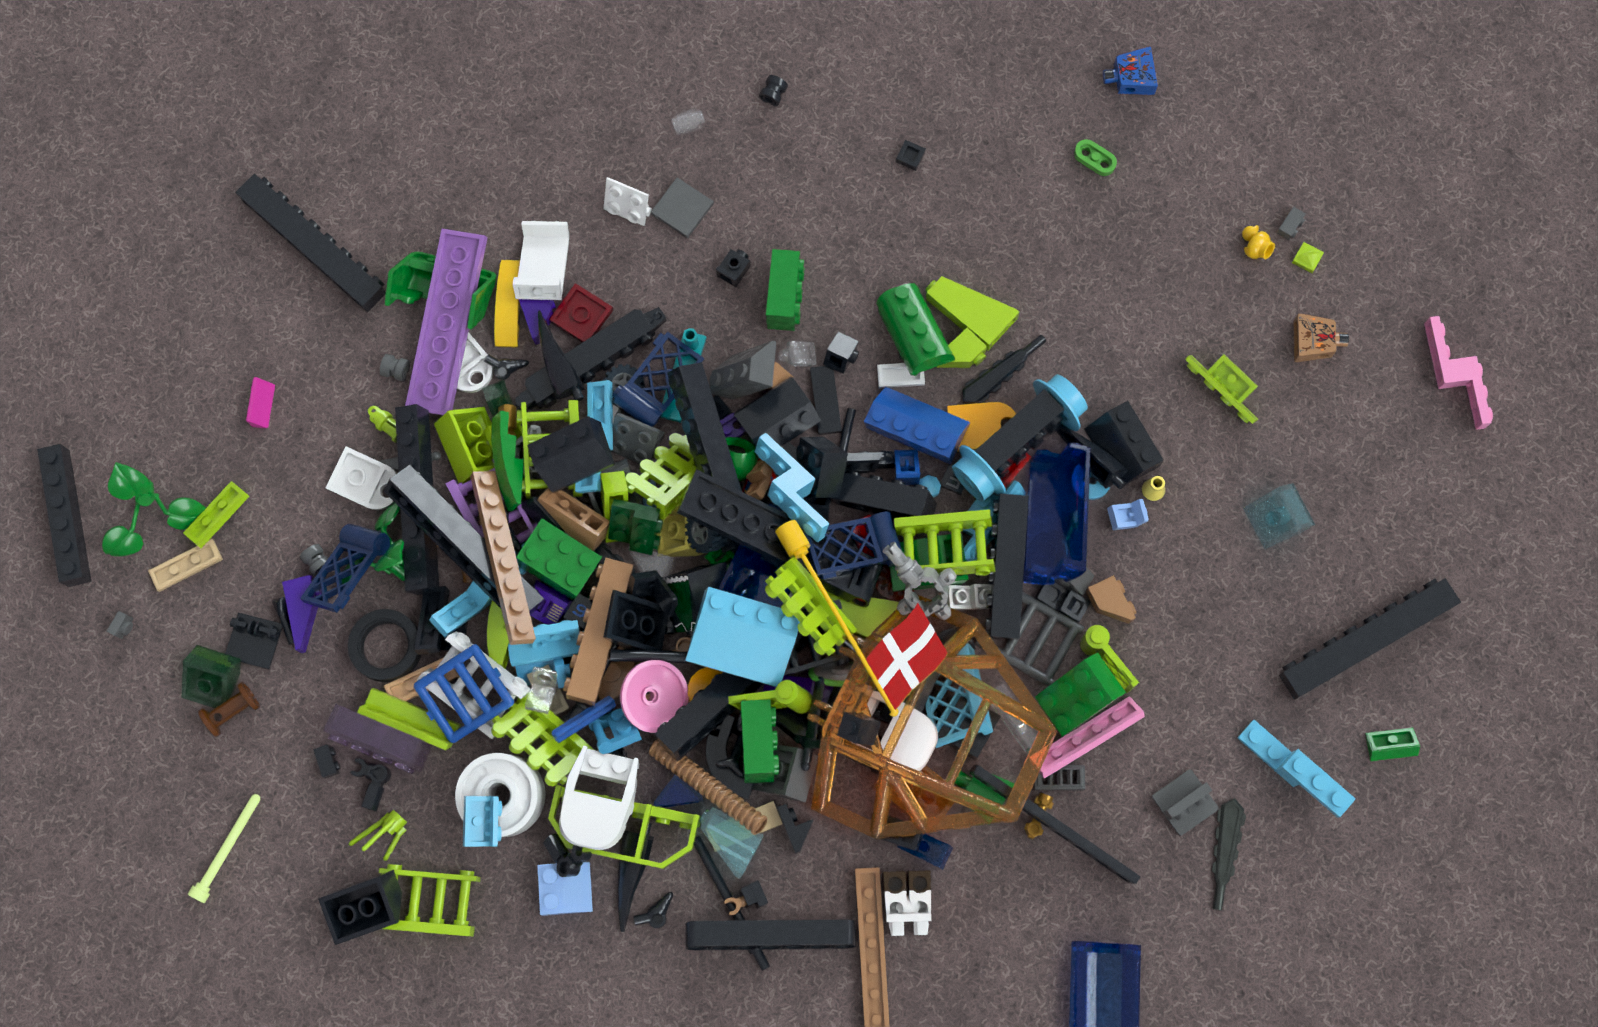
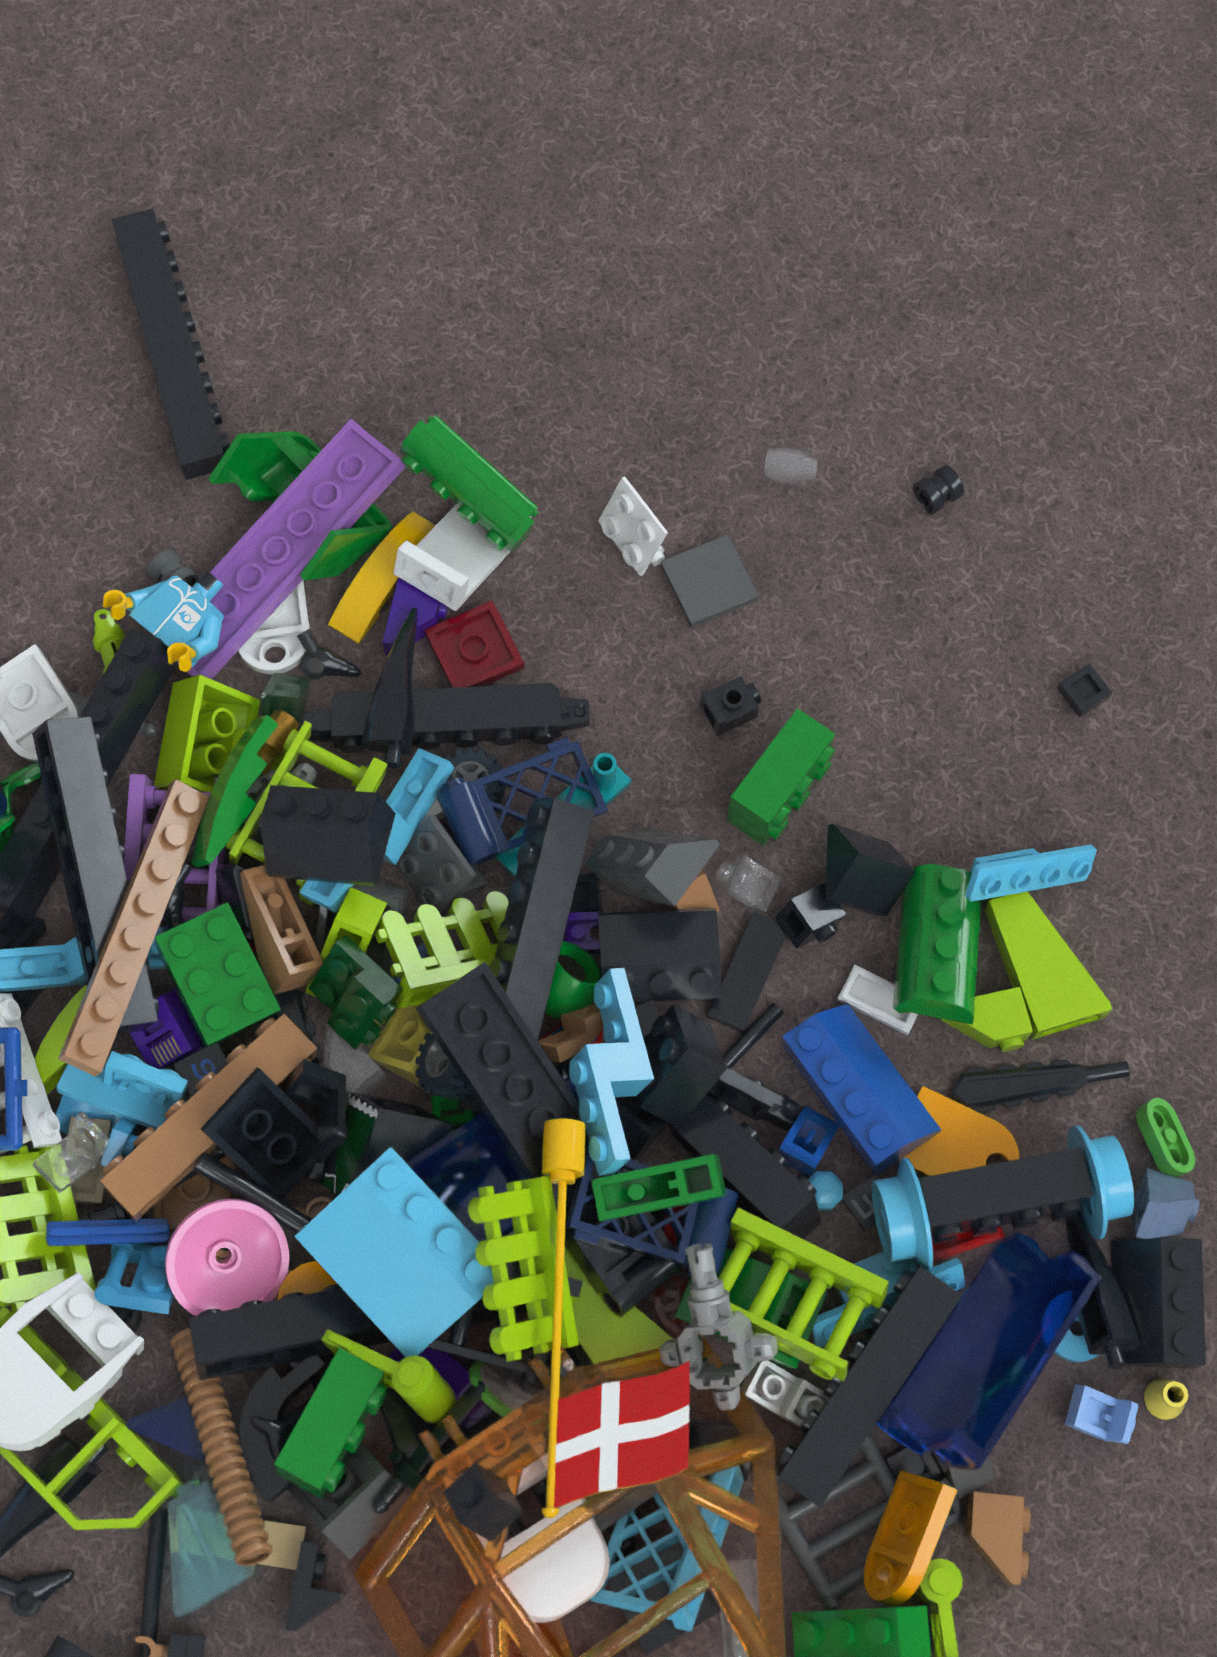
camera: 25 degrees right, 5 degrees down
(414, 386) = (176, 615): none -> medium azure torso
(528, 226) = (470, 481): none -> green container
(850, 530) = (659, 1187): none -> green slope
(854, 314) = (864, 871): none -> black slope
(937, 265) = (1028, 871): none -> medium azure bracket
(1069, 627) = (906, 1538): none -> light orange tile
(1081, 361) = (1165, 1137): none -> bright green plate
(1100, 394) = (1163, 1205): none -> sand blue slope

